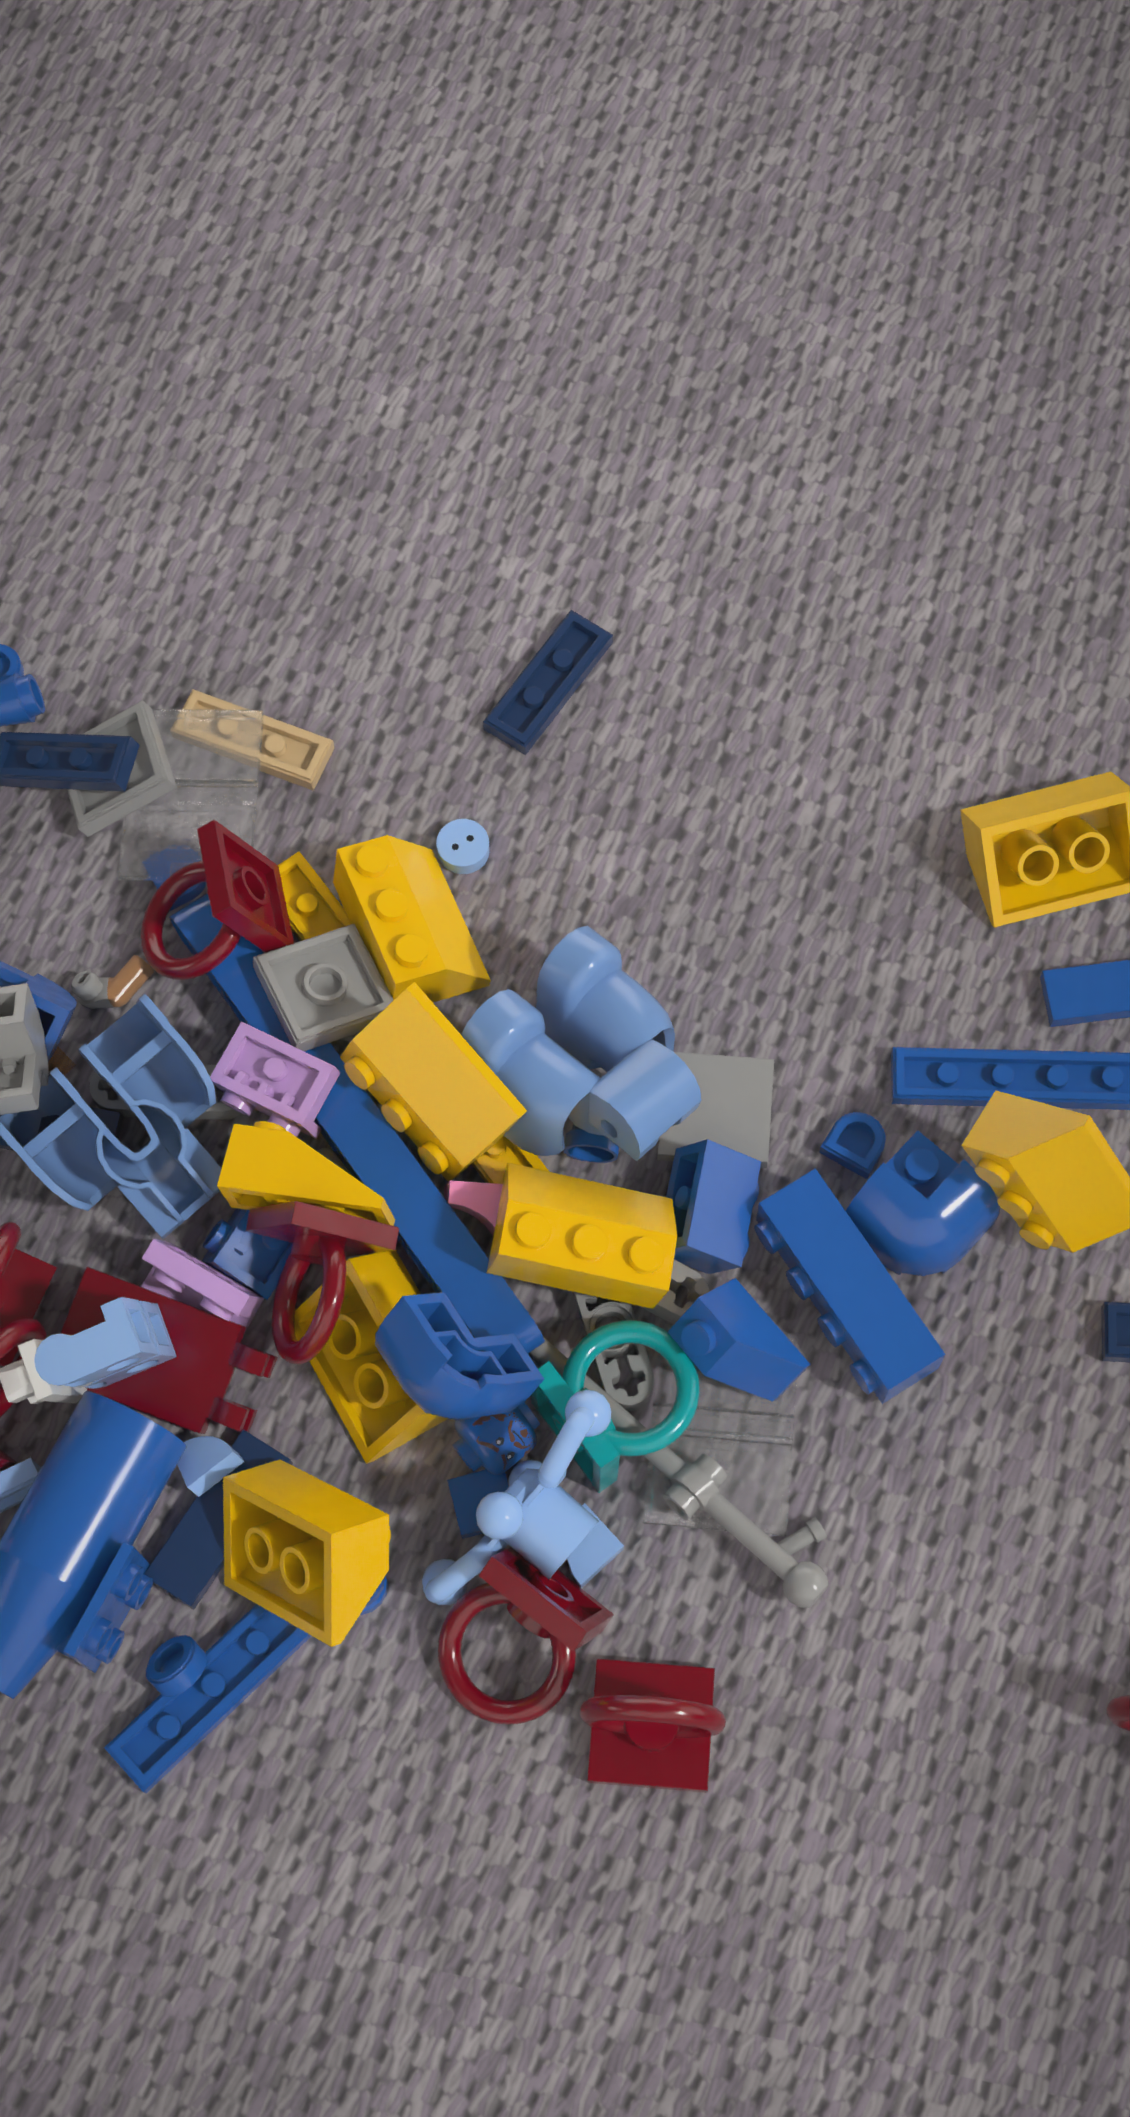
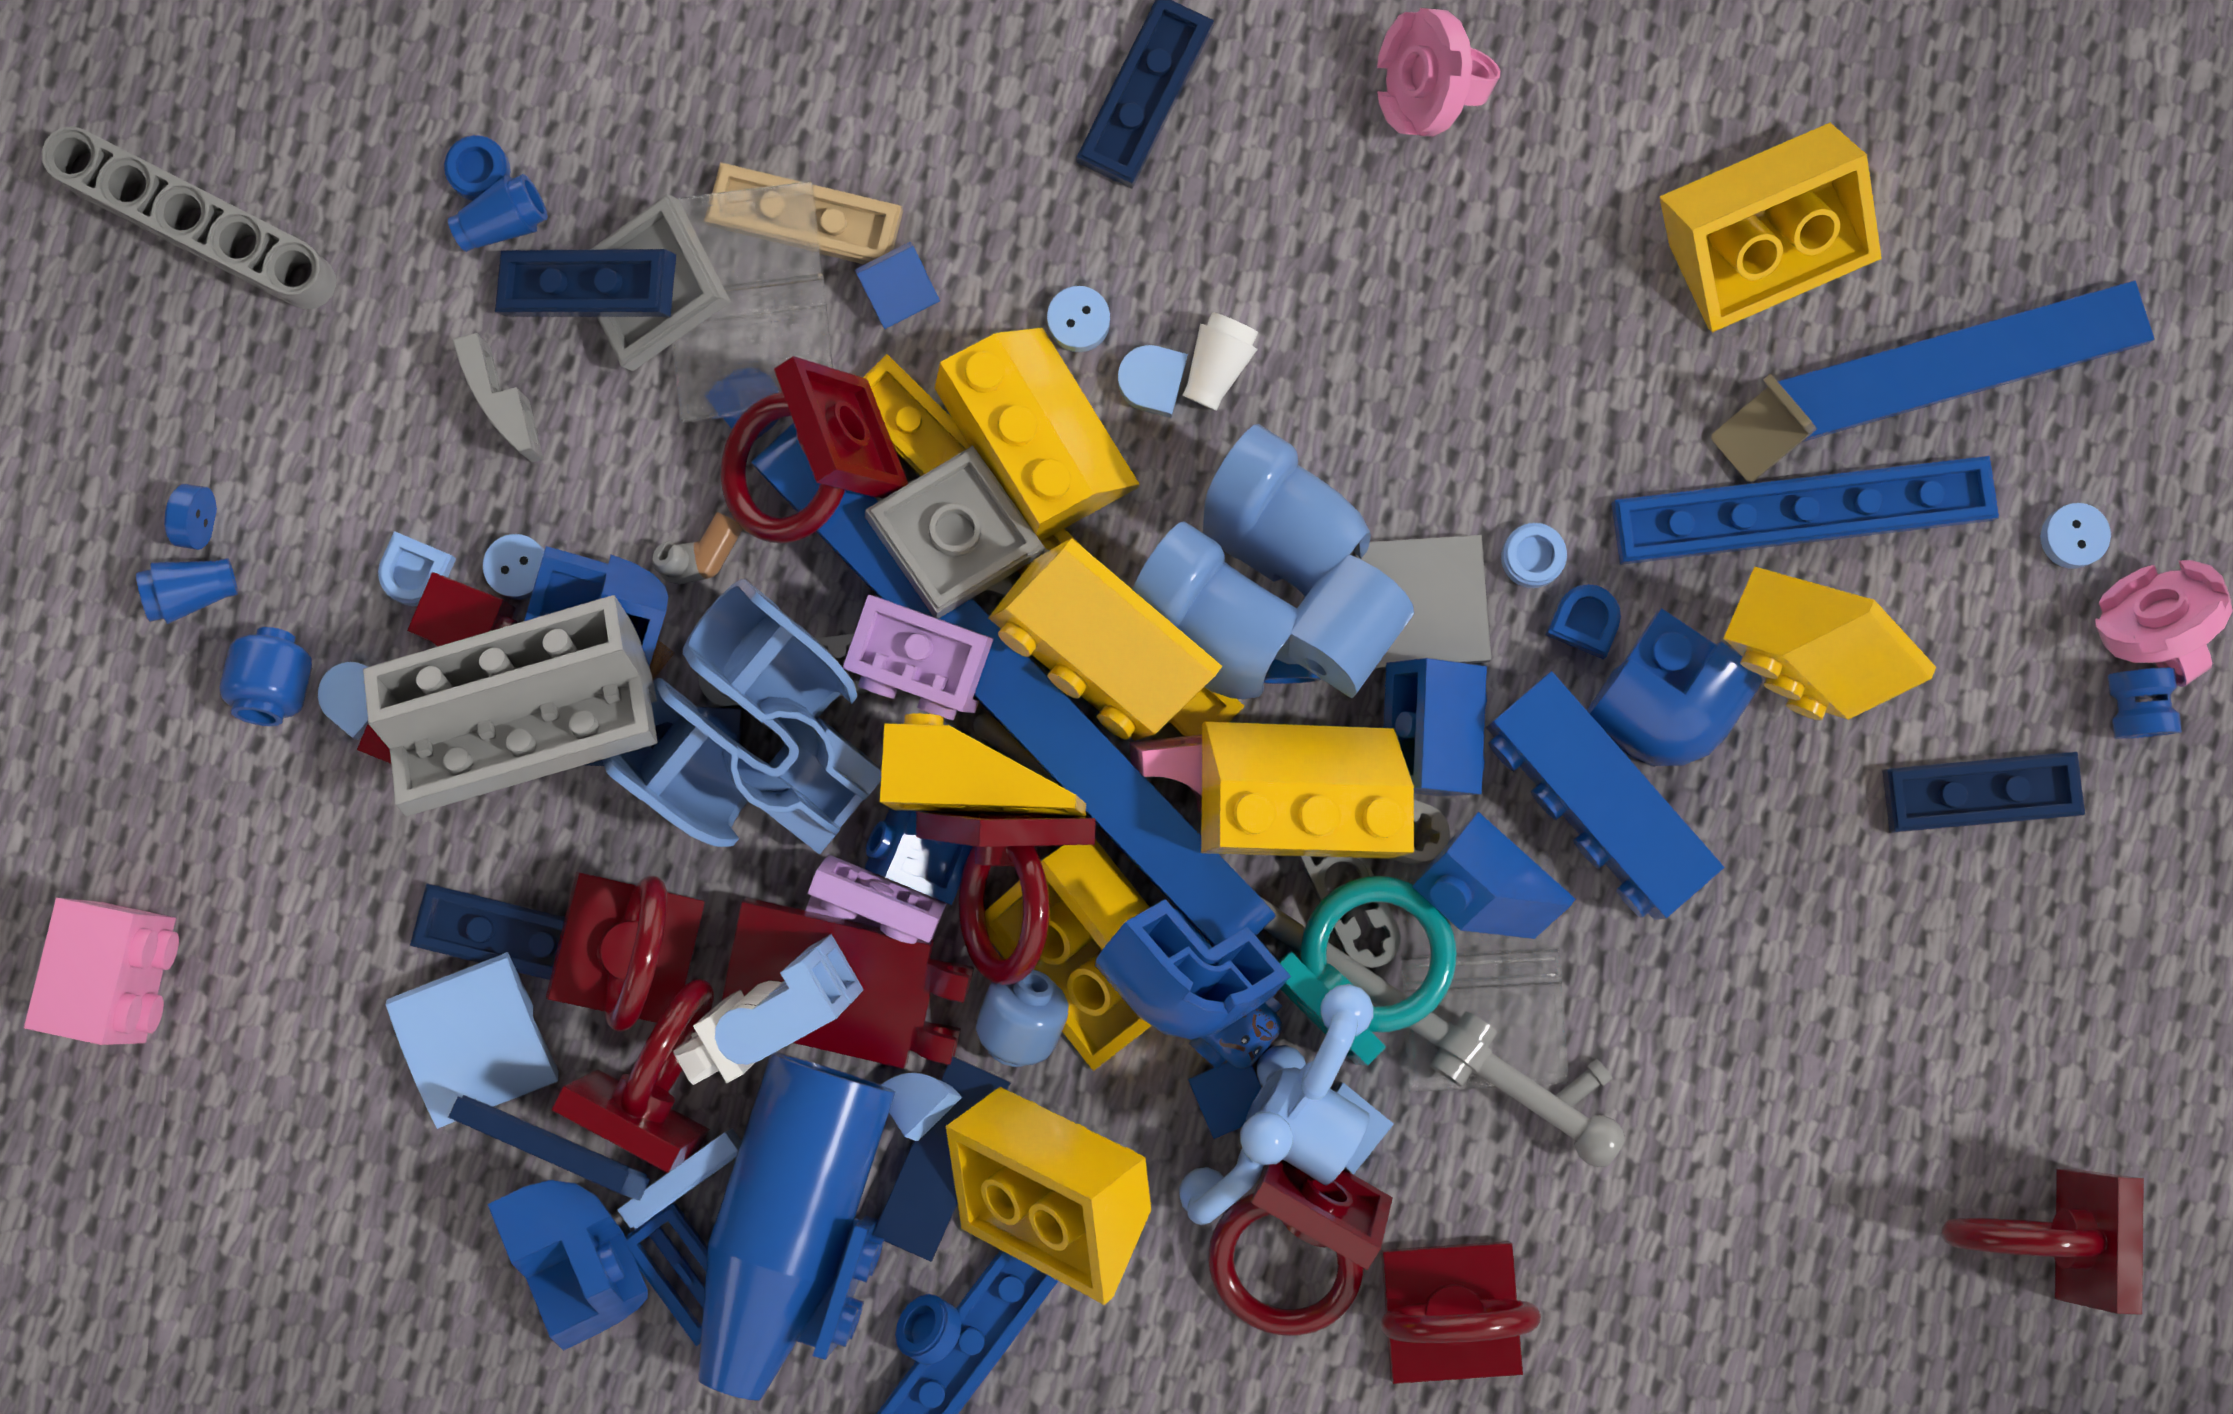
camera: 10 degrees left, 15 degrees up
(309, 1401) = (1022, 1020): none -> medium blue head
(317, 799) = (897, 285): none -> blue tile
(516, 900) = (1152, 378): none -> light blue tile
(574, 890) = (1218, 359): none -> white cone
(784, 690) = (1431, 72): none -> bright pink tile
(817, 1084) = (1534, 555): none -> light blue tile
(1028, 1007) = (1763, 431): none -> dark tan bracket

